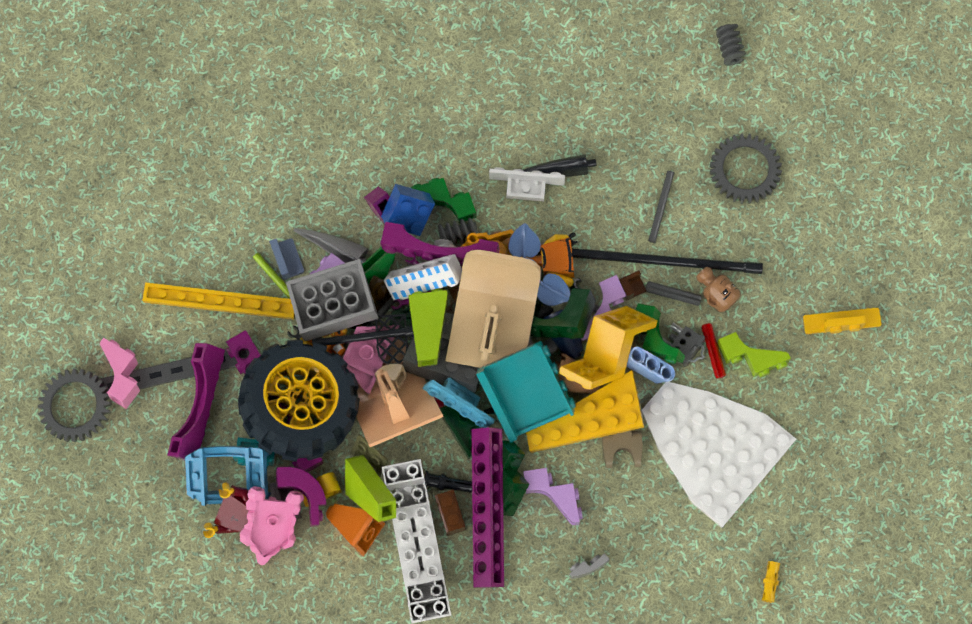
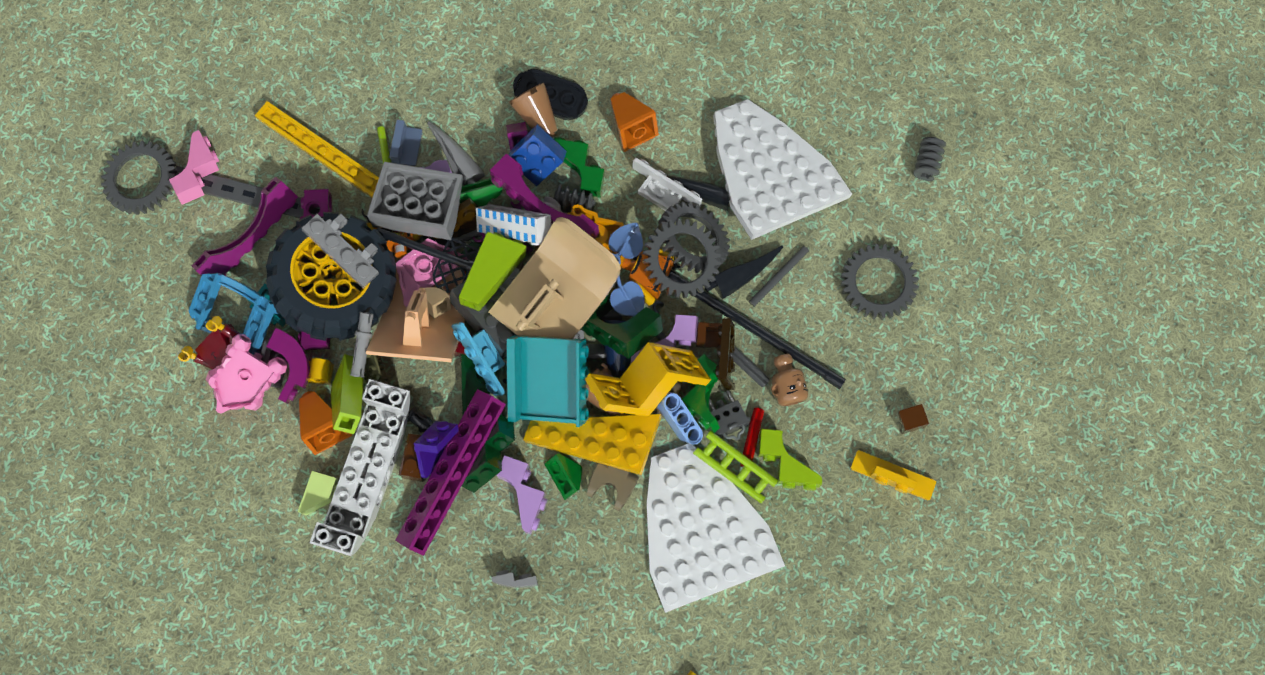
camera: 25 degrees right, 0 degrees up
(284, 369) = (329, 239): none -> light grey hinge
(359, 439) = (363, 335): none -> light grey pin
(381, 170) = (536, 109): none -> medium nougat cone
(384, 151) = (562, 94): none -> black tile
(387, 583) = (317, 492): none -> yellowish green slope
(462, 491) = (431, 445): none -> dark purple bracket
(468, 138) = (634, 120): none -> orange slope
(580, 461) = (565, 474): none -> green slope
(587, 260) = (657, 273): none -> dark grey piece
(590, 231) = (693, 261): none -> dark grey piece
(607, 120) = (771, 170): none -> white wing
(627, 225) = (736, 277): none -> black piece
(654, 292) = (726, 364): none -> dark brown wing
(706, 371) = (738, 479): none -> lime bar
(833, 266) = (913, 418): none -> reddish brown panel

